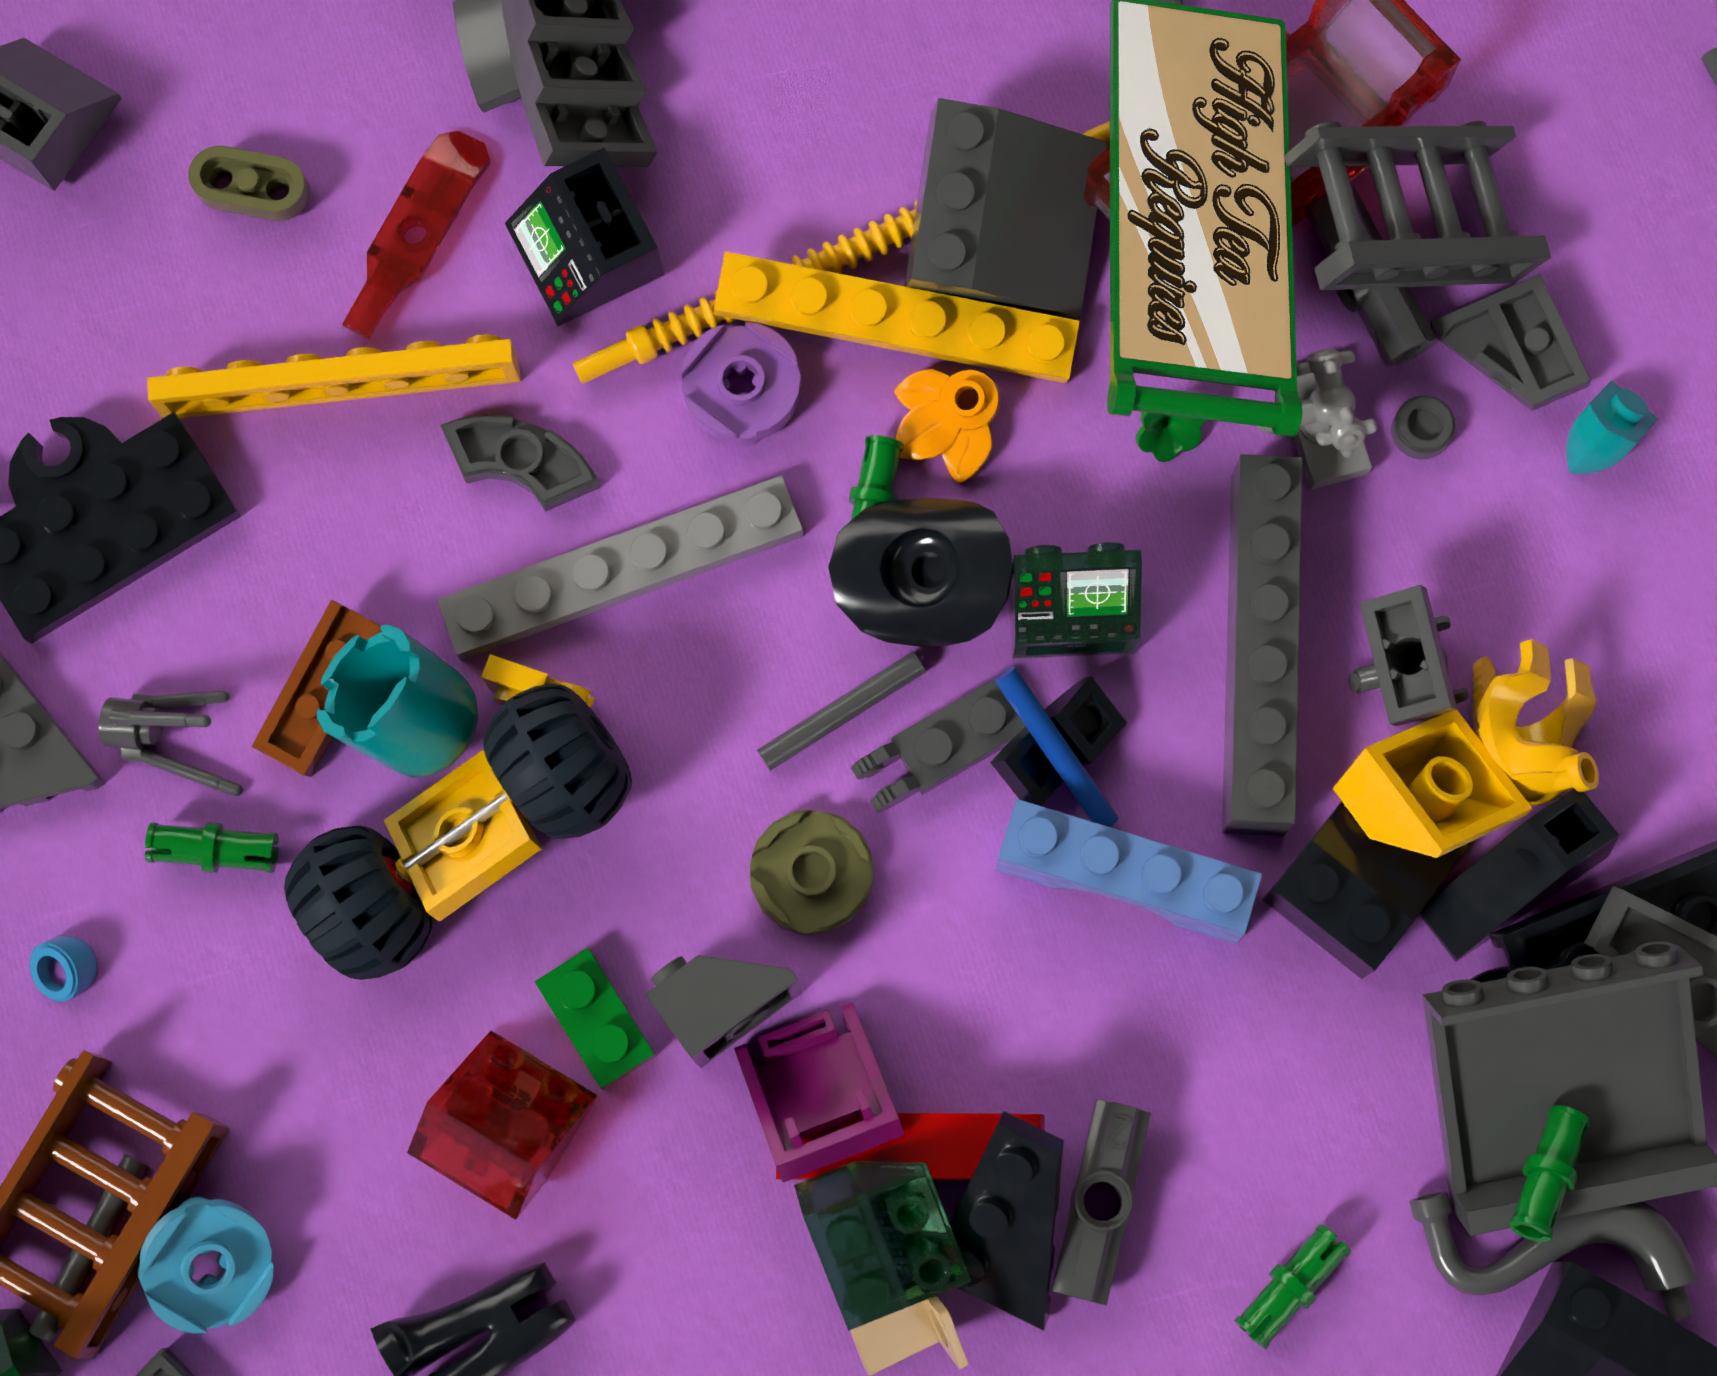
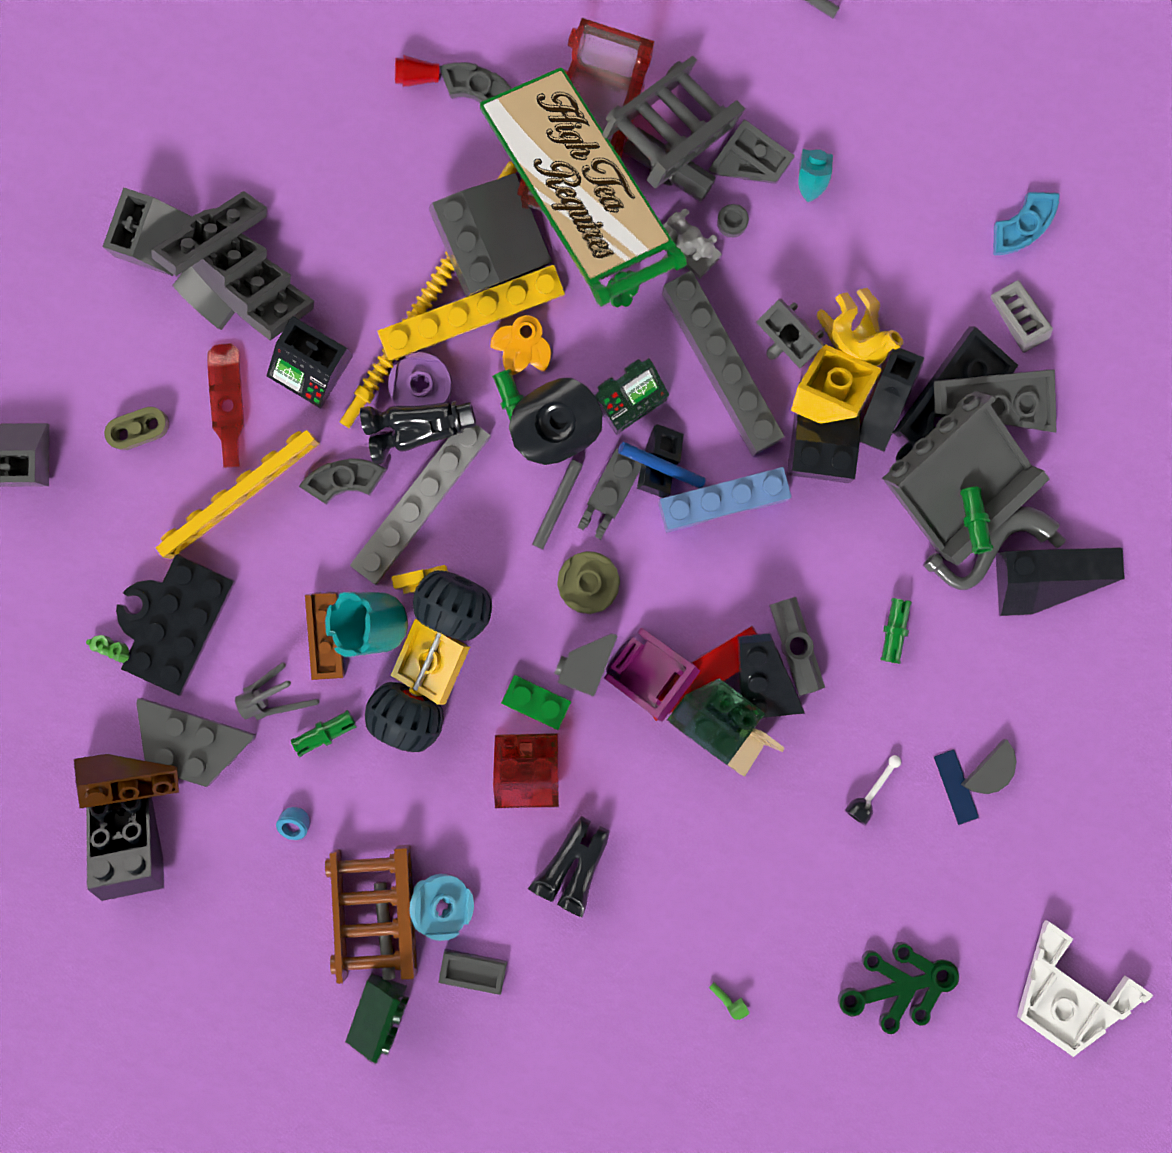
camera: 35 degrees left, 10 degrees up
(684, 436) = (413, 426): none -> black piece

